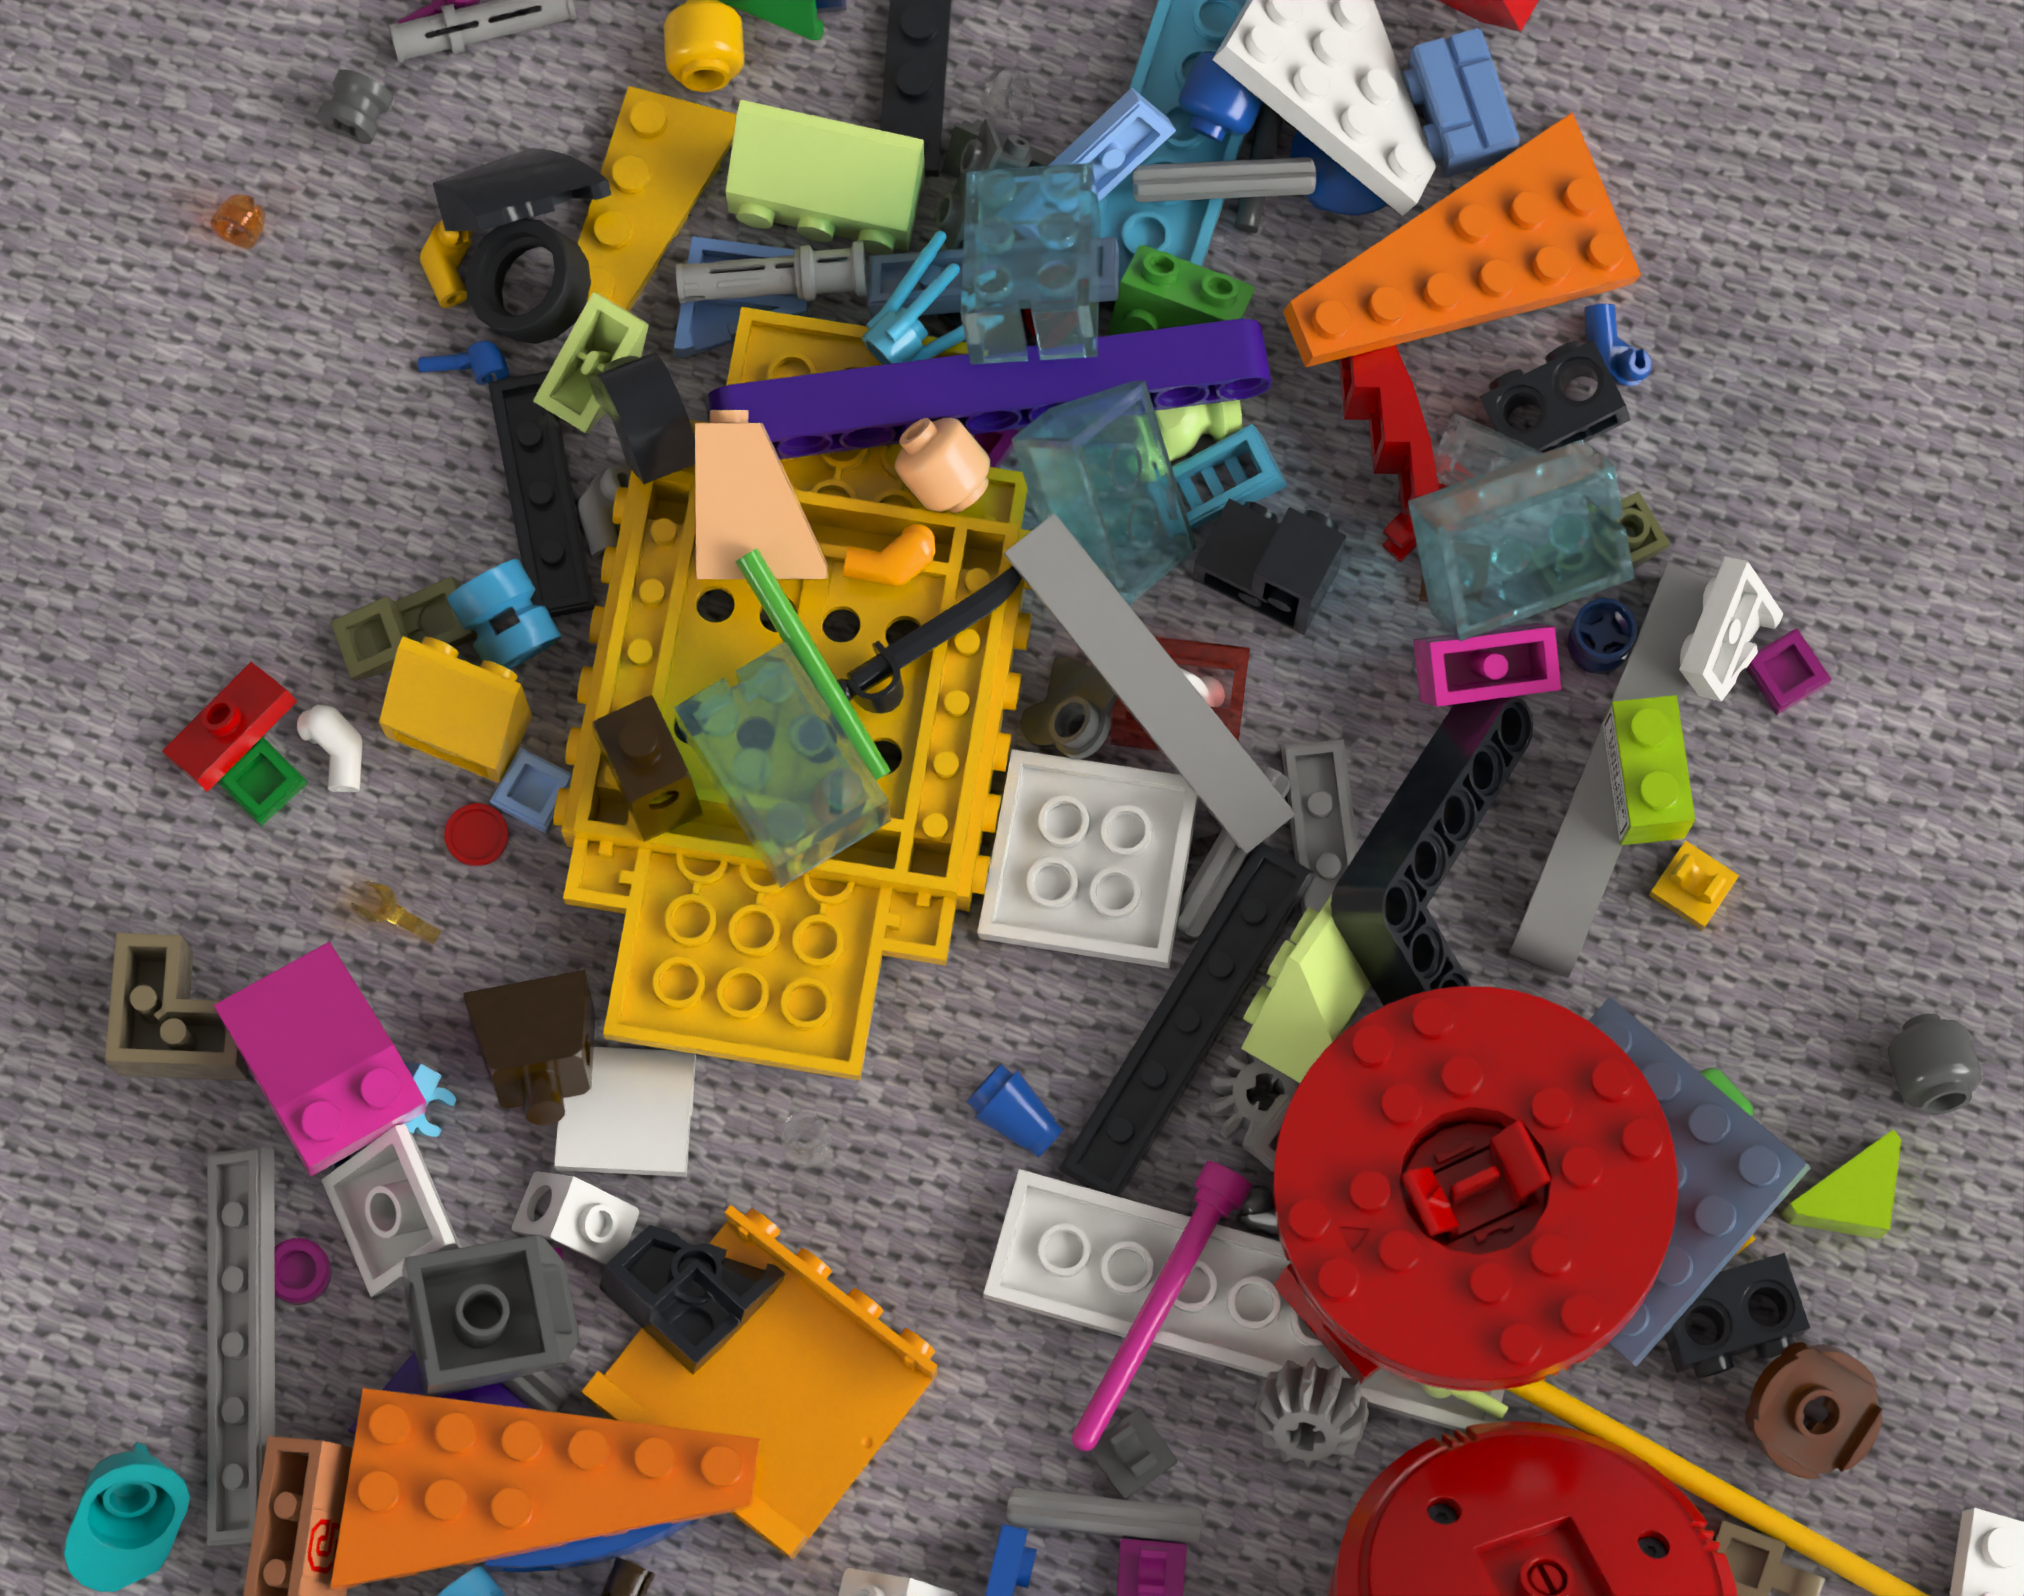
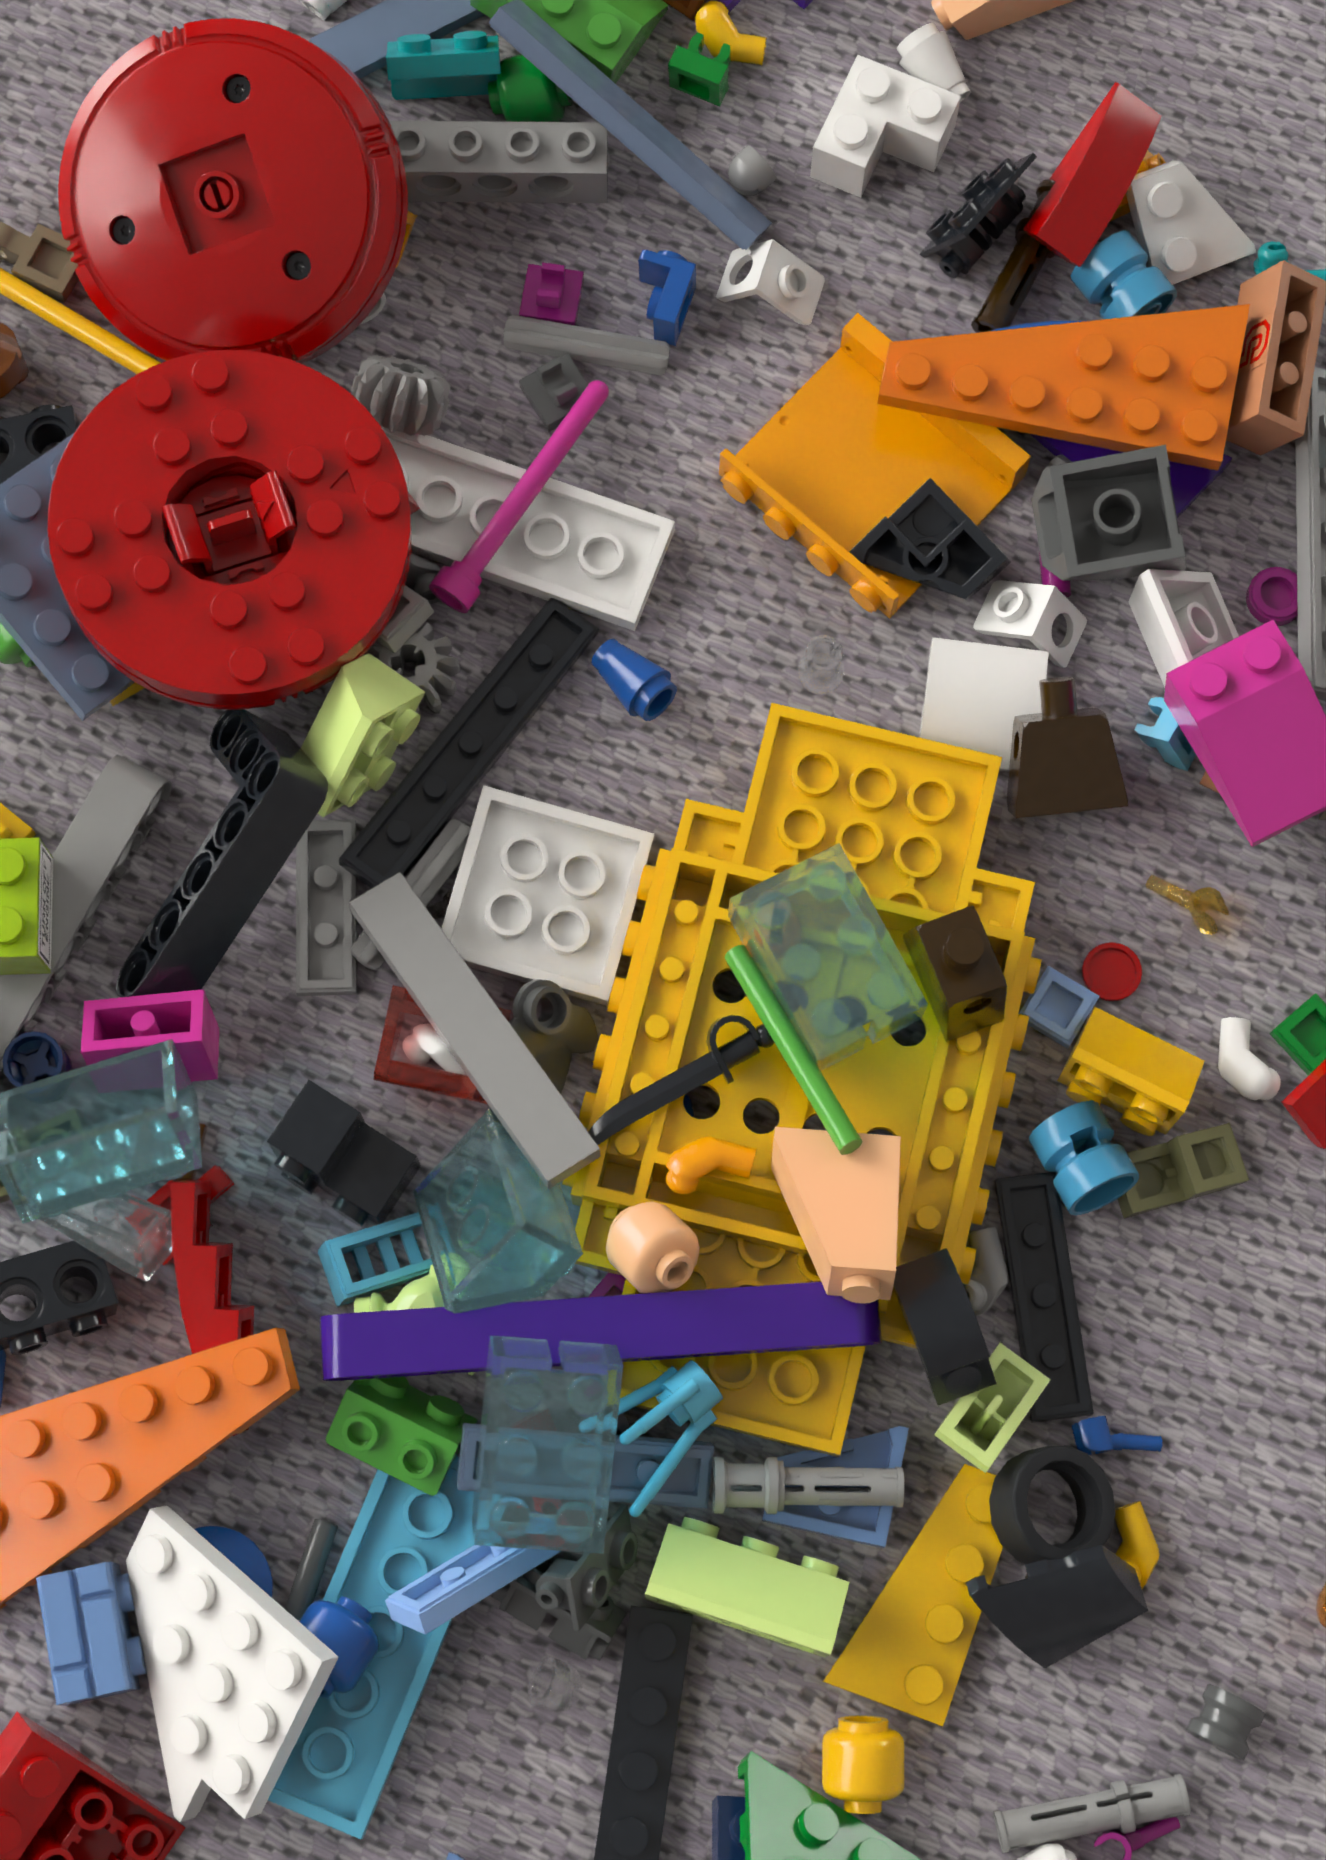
camera: 175 degrees left, 0 degrees up
(1224, 179) = (341, 1557): light grey axle -> none

